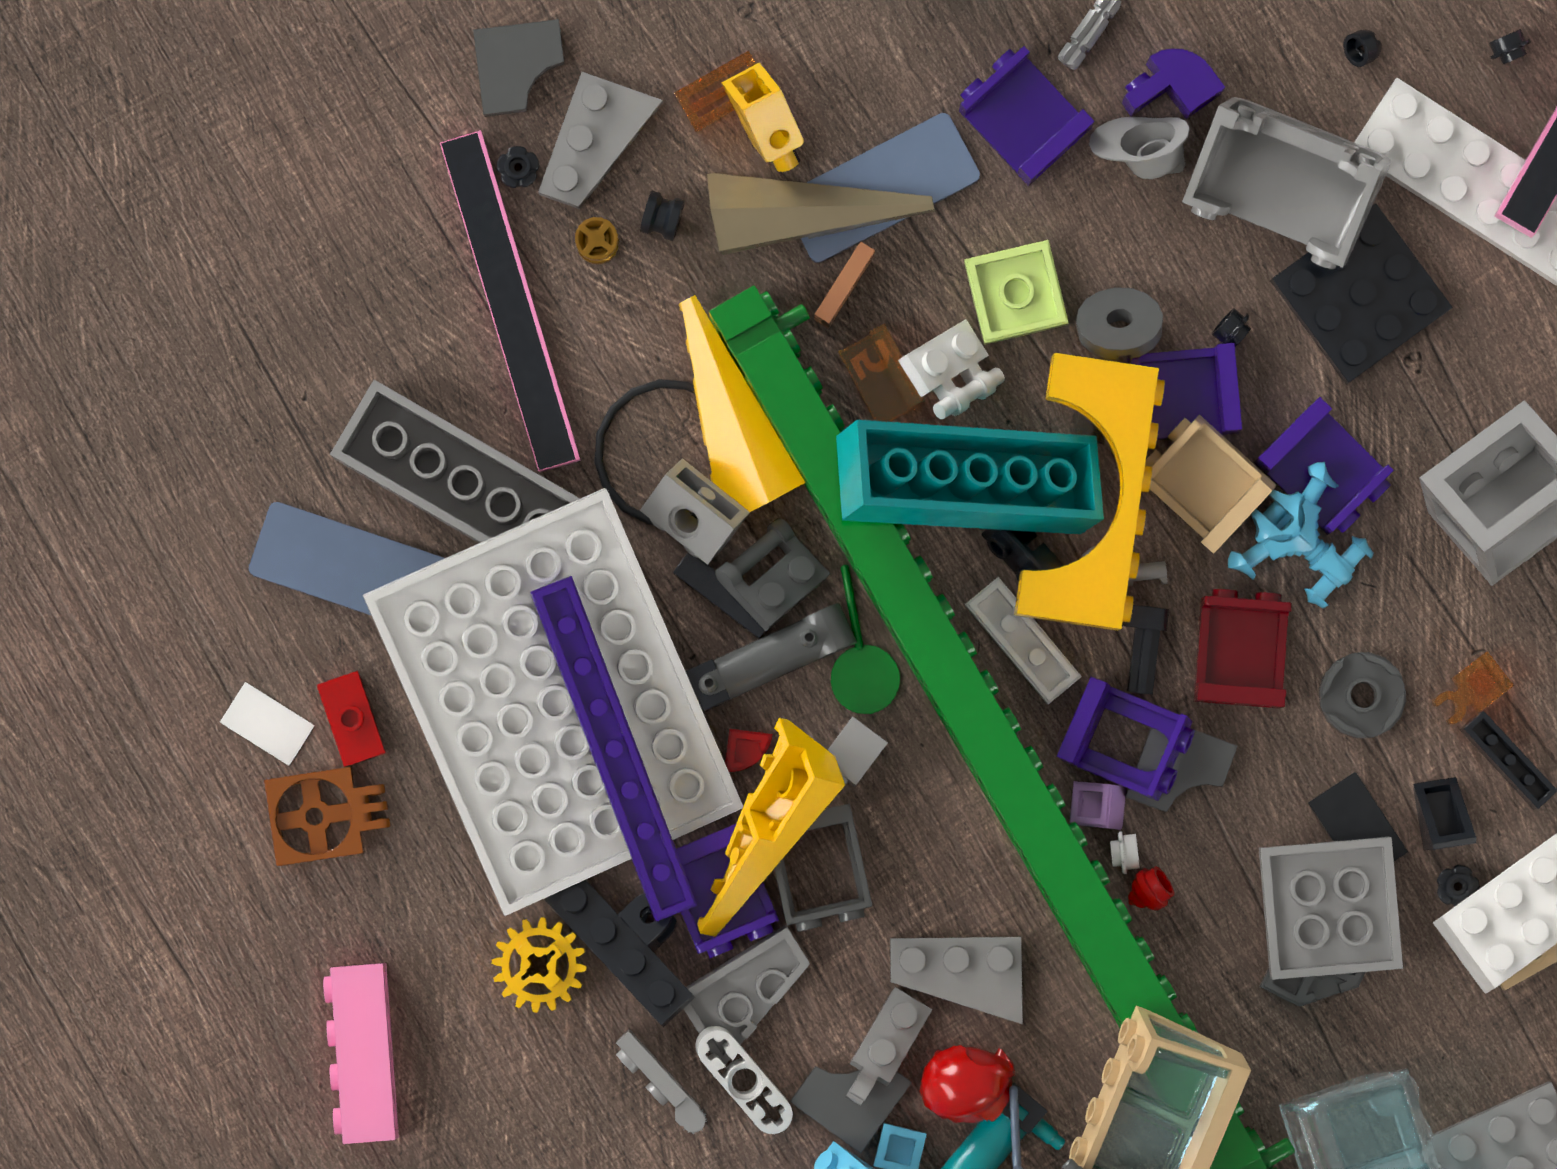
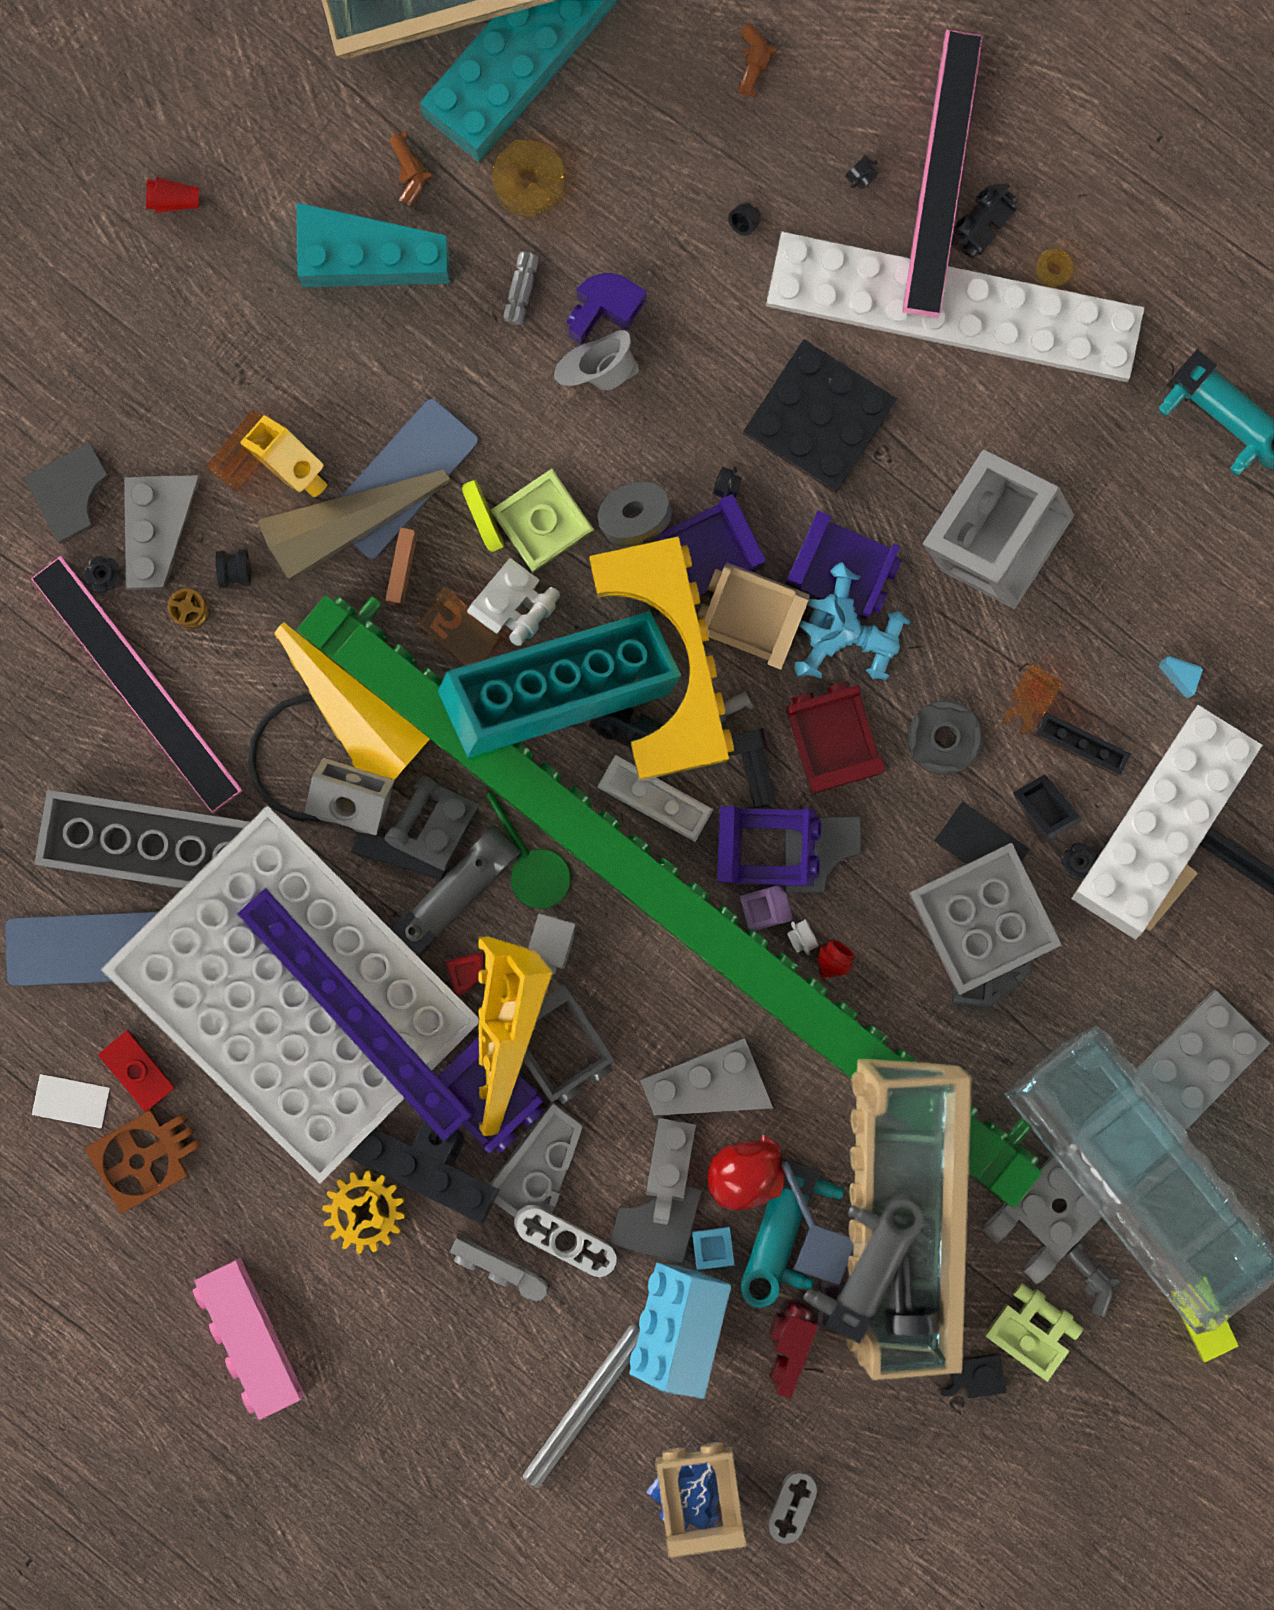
camera: 15 degrees left, 0 degrees up
(953, 262) = (482, 516): none -> neon yellow tile
(1023, 115) = (493, 376): dark purple panel -> none
(1286, 179) = (723, 346): light grey windscreen -> none

